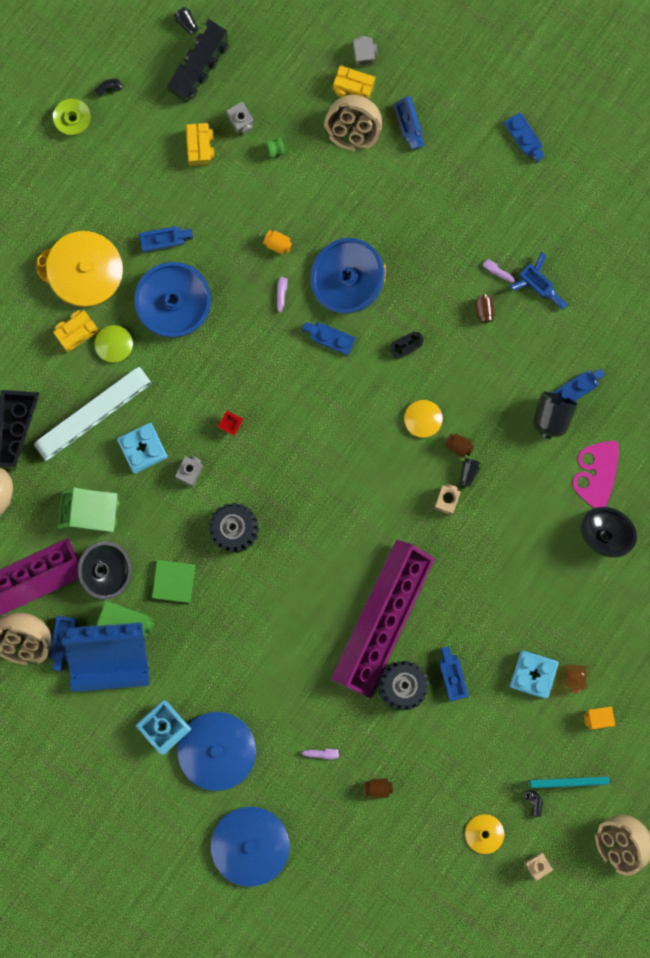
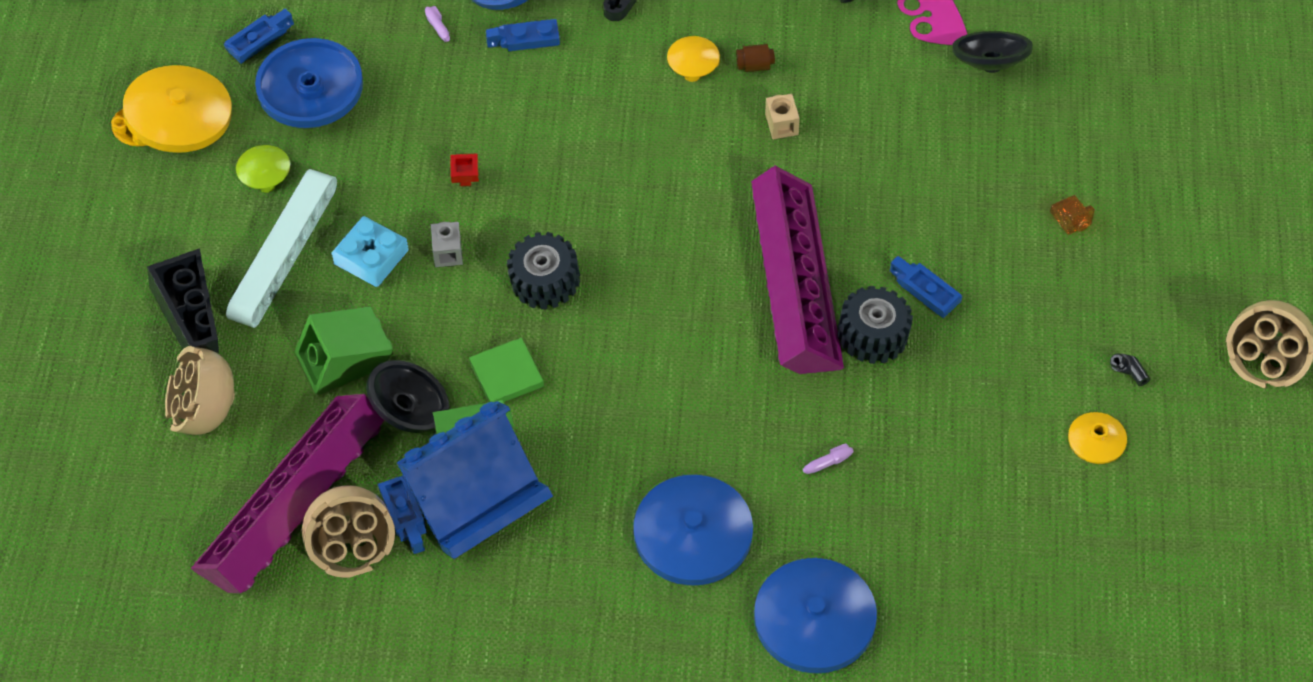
camera: 25 degrees left, 25 degrees down
(75, 330) = (205, 174): yellow brick -> none
(151, 727) = (604, 531): medium azure brick -> none
(378, 788) = (928, 454): reddish brown brick -> none
(469, 471) = (785, 75): black cone -> none
(538, 866) = (1190, 428): tan brick -> none
(540, 685) = (1021, 235): medium azure brick -> none
(564, 782) = (1152, 320): teal tile -> none
(599, 718) = (1133, 236): light orange brick -> none

